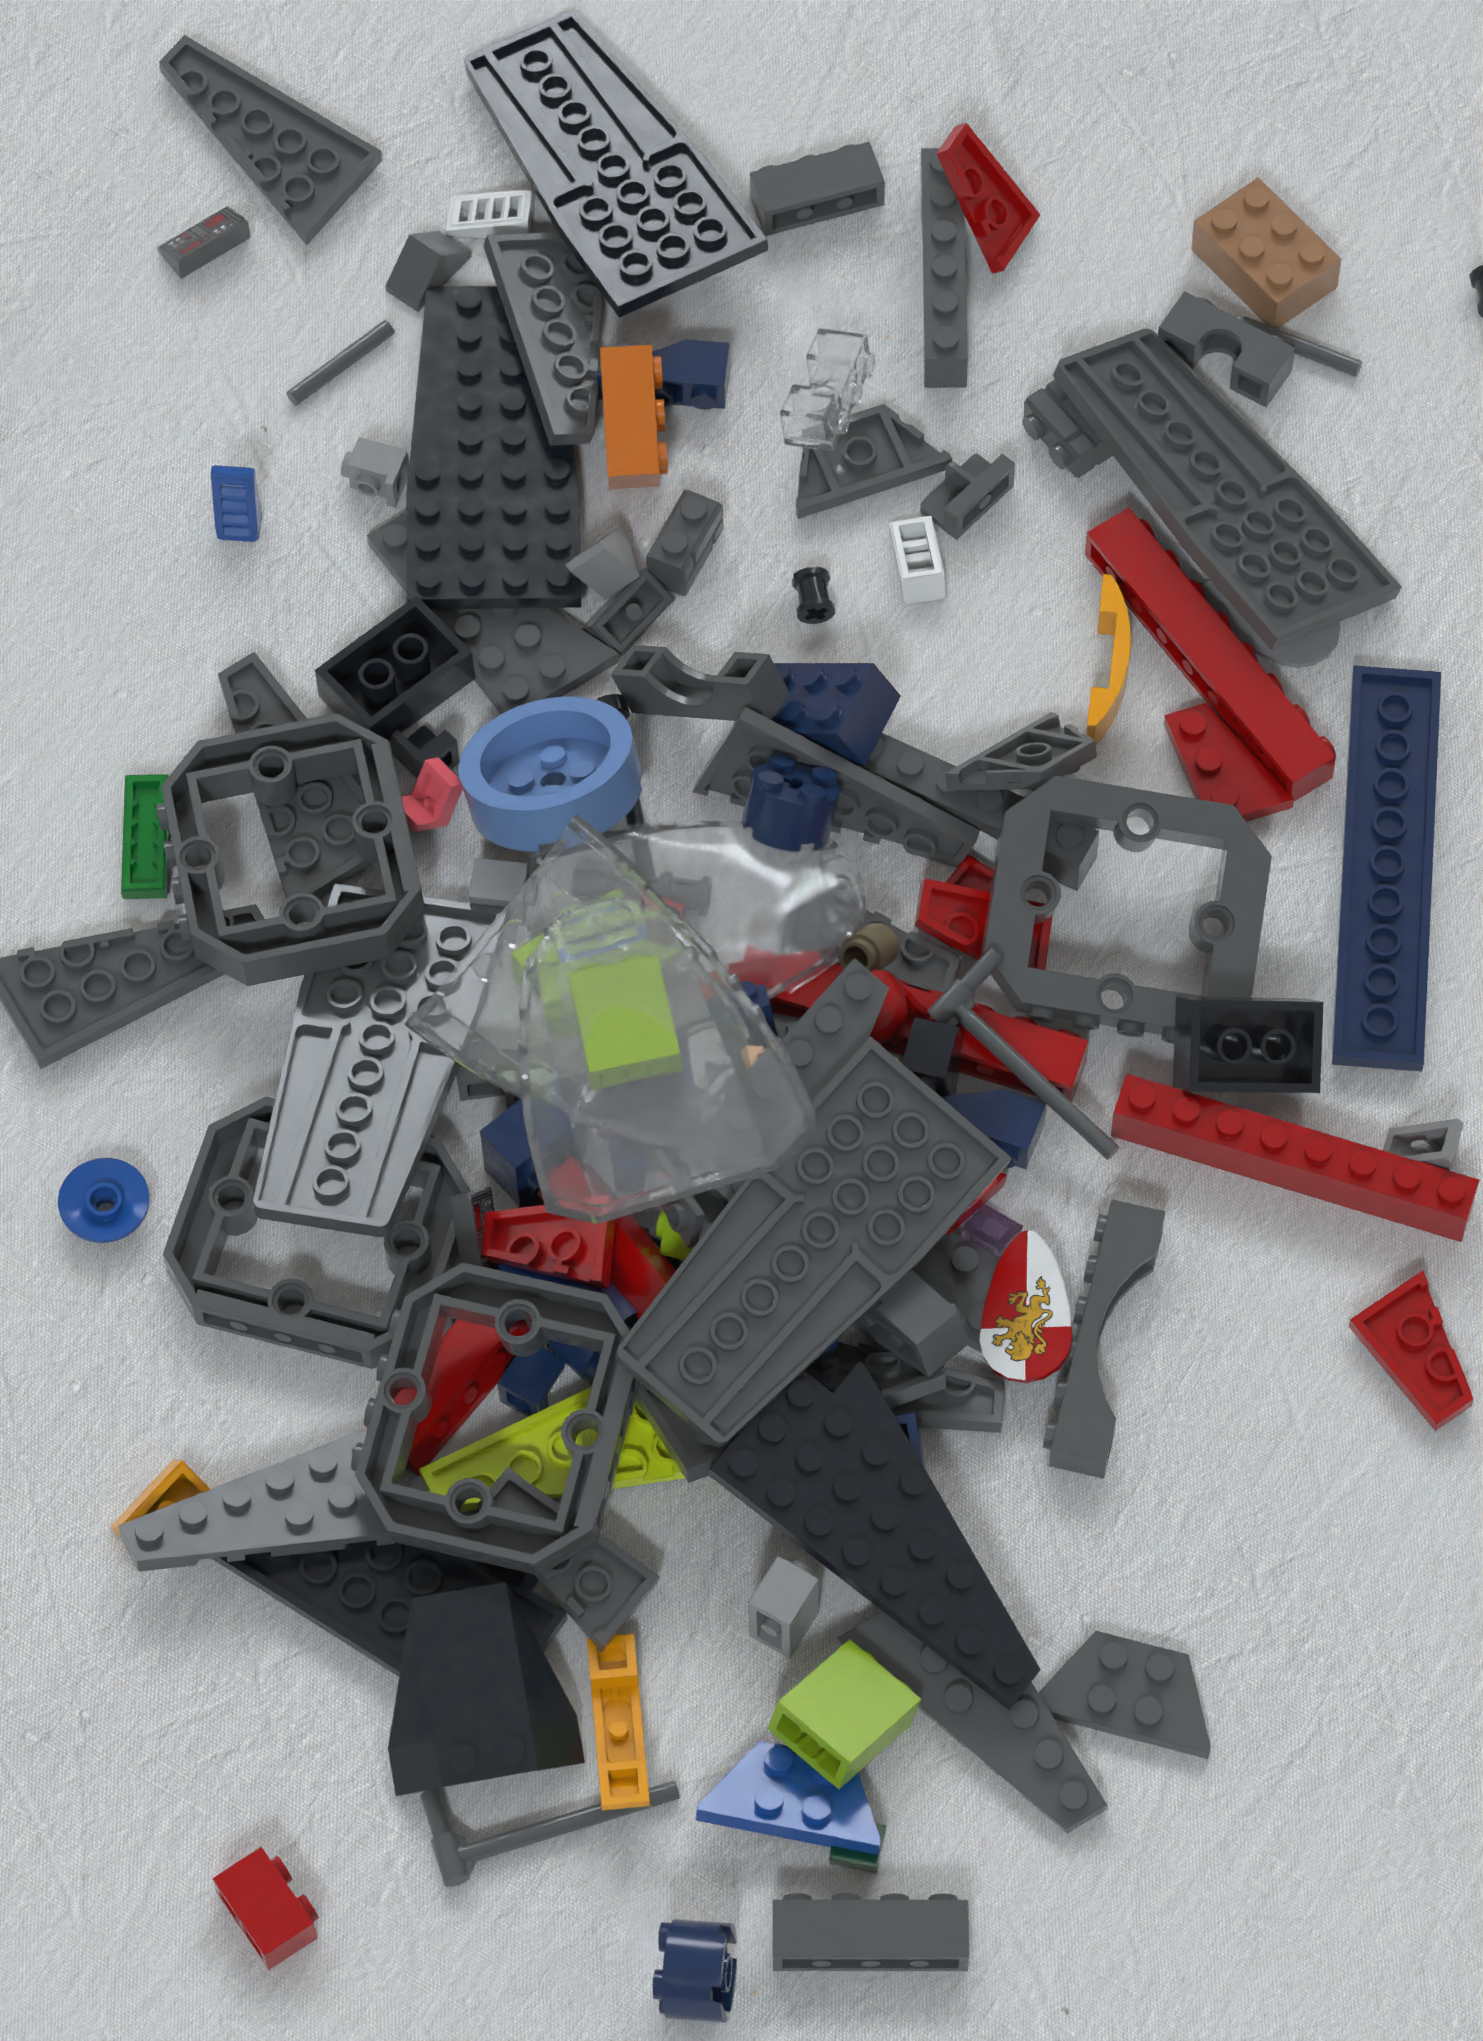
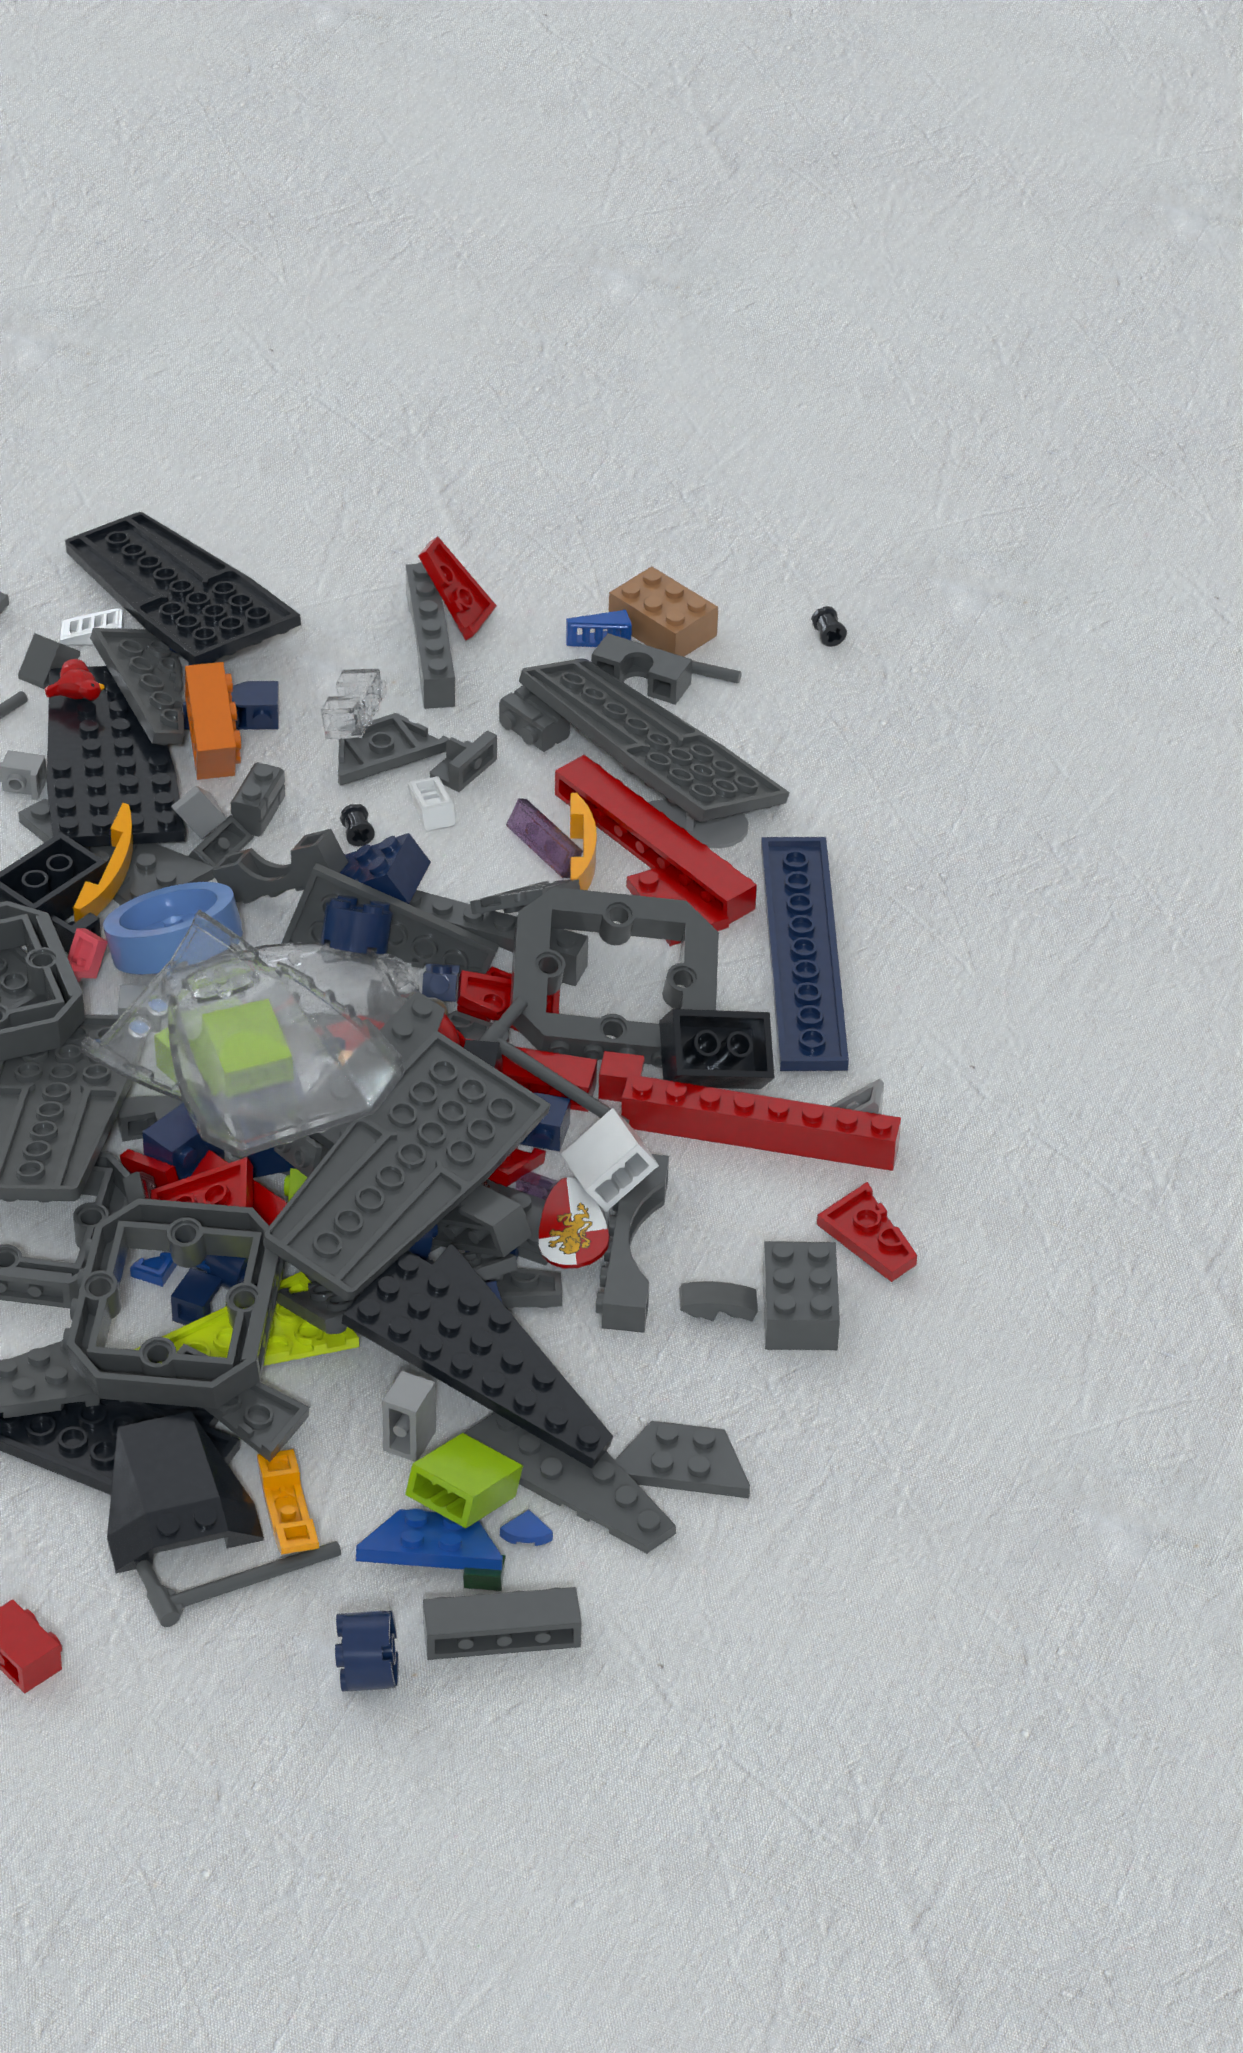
camera: 10 degrees left, 20 degrees down
(453, 704) = (96, 897): none -> light orange slope
(457, 329) = (75, 682): none -> red animal
(463, 1375) = (144, 1298): red panel -> none
(488, 1173) = (137, 1162): none -> red tile
(817, 188) = (334, 597): dark grey brick -> none
(896, 885) = (441, 982): none -> dark blue brick
(917, 1786) = (526, 1529): none -> blue tile
(1060, 640) = (543, 837): none -> clear purple tile
(1085, 1217) = (609, 1159): none -> white brick
(1115, 1057) = (614, 1073): none -> red panel
(1176, 273) = (615, 622): none -> blue slope
(1198, 1442) = (709, 1297): none -> dark grey slope
(1312, 1451) = (800, 1296): none -> dark grey brick

